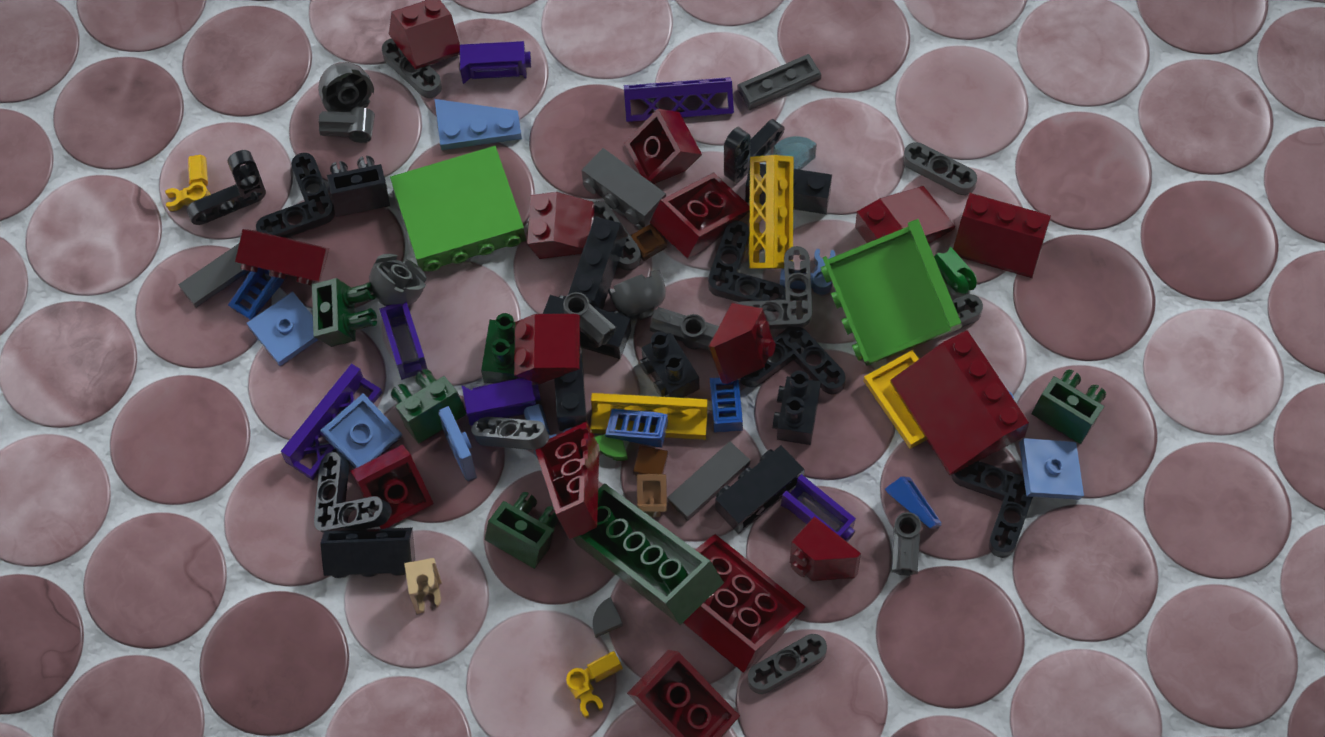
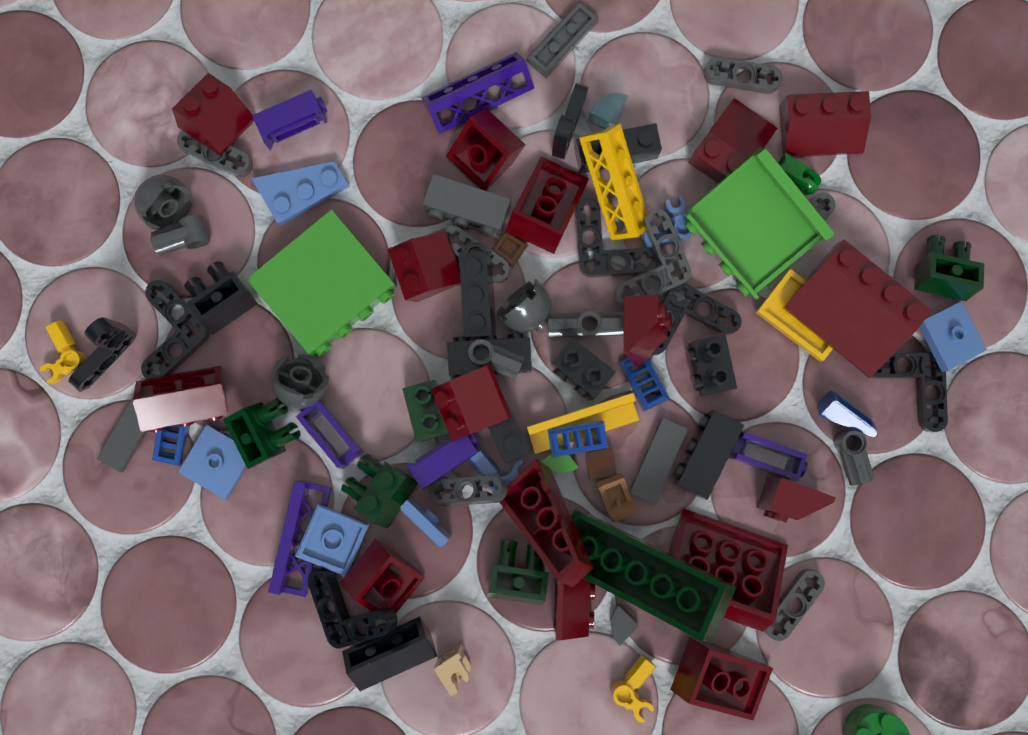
camera: 25 degrees left, 20 degrees up
(563, 573) = (572, 610): none -> dark red slope

